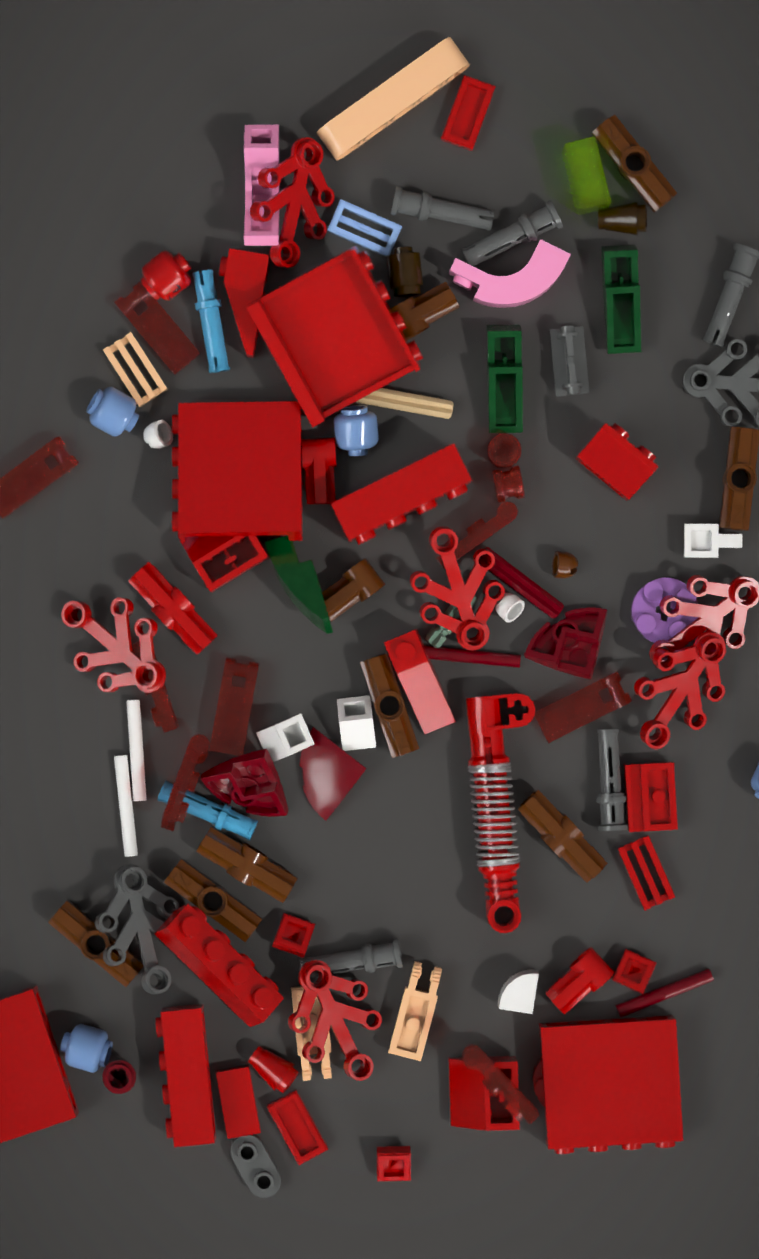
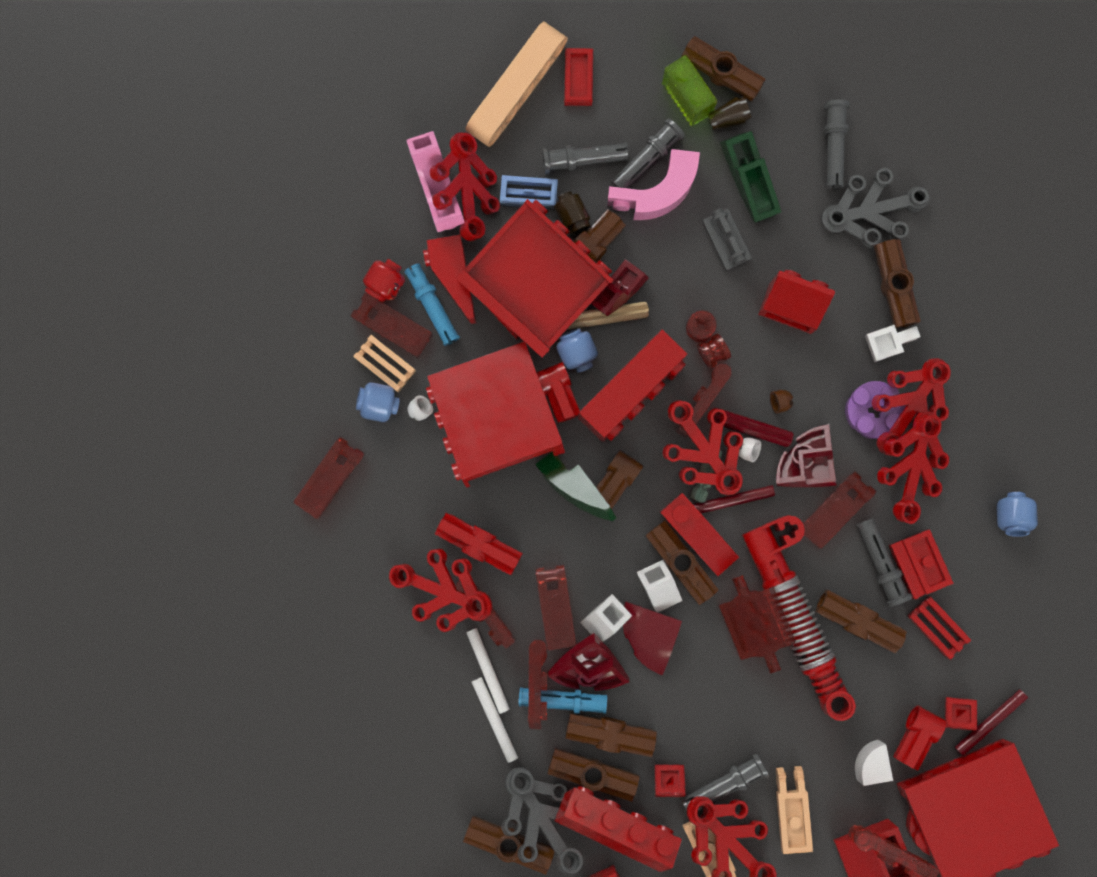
camera: 10 degrees left, 5 degrees down
(223, 557) = (506, 487): red slope -> none
(435, 374) = (625, 284): none -> dark red slope
(447, 799) = (757, 623): none -> clear red plate
(505, 378) = (681, 269): dark green slope -> none

